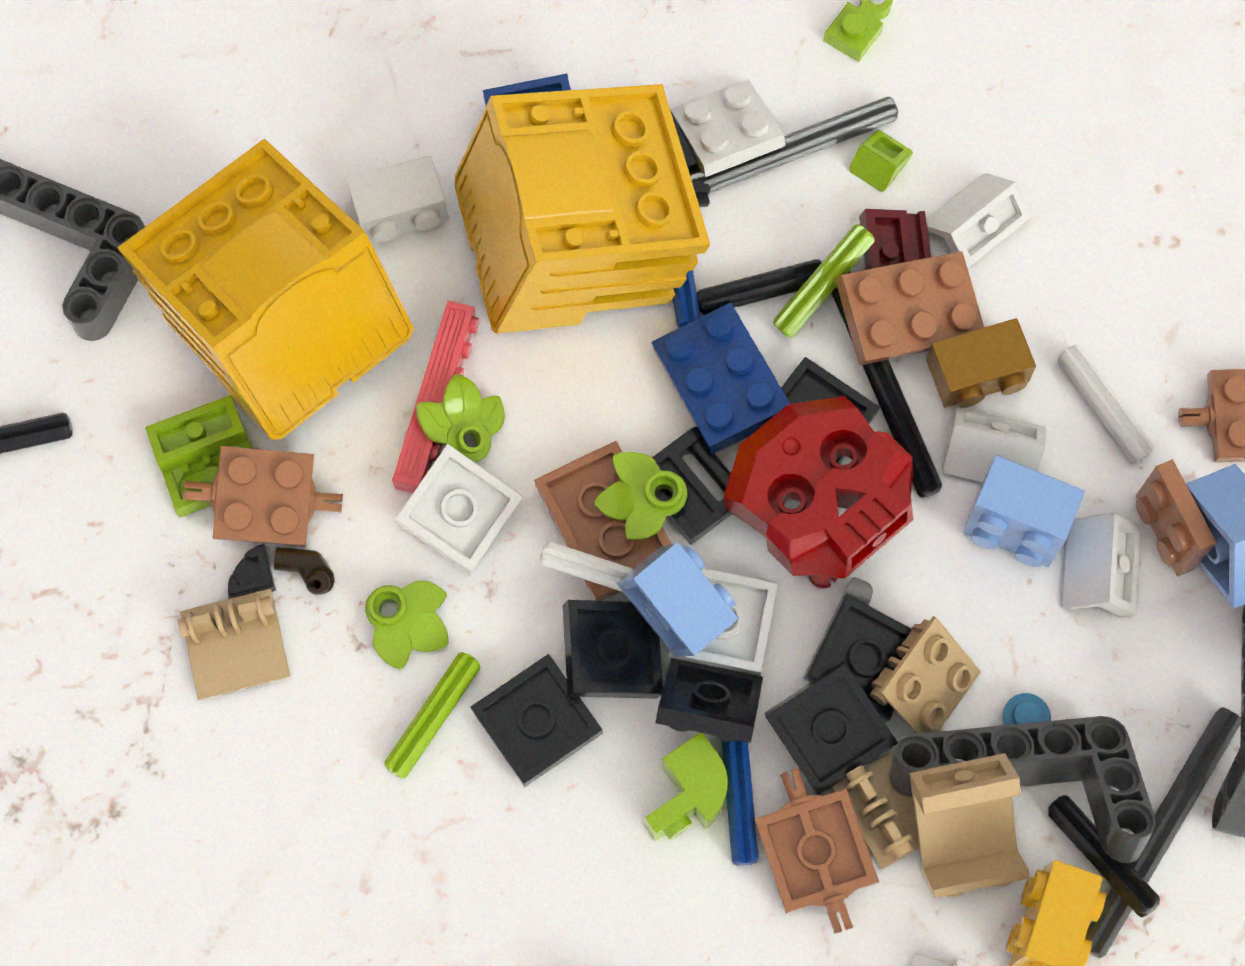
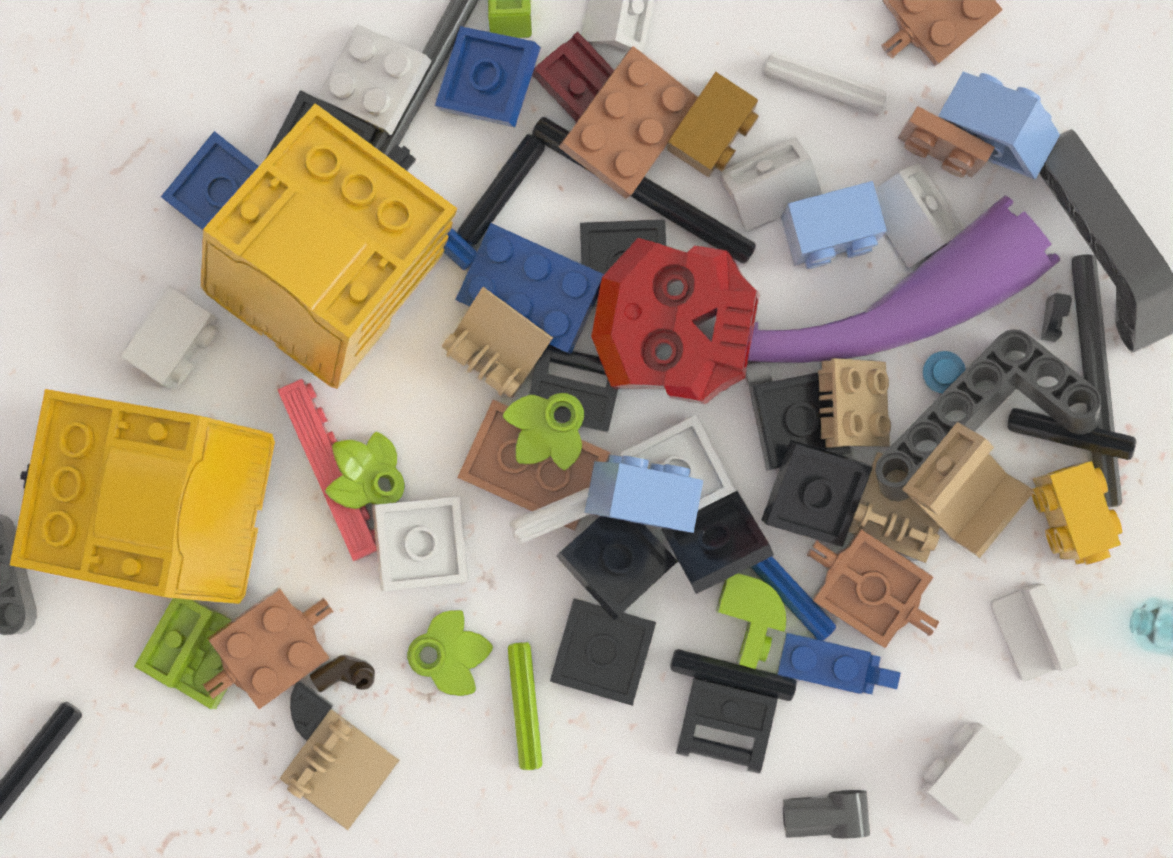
camera: 35 degrees left, 15 degrees up
(603, 858) = (729, 711): none -> black plate
(633, 832) = (733, 675): none -> black axle
(656, 397) = (497, 343): none -> tan hinge
(728, 895) = (833, 665): none -> blue hinge
(821, 189) = (487, 76): none -> blue plate
(823, 280) = (547, 151): lime axle -> none
(1099, 645) = (962, 280): none -> medium lavender brick
(1165, 745) = (1056, 307): none -> black tile

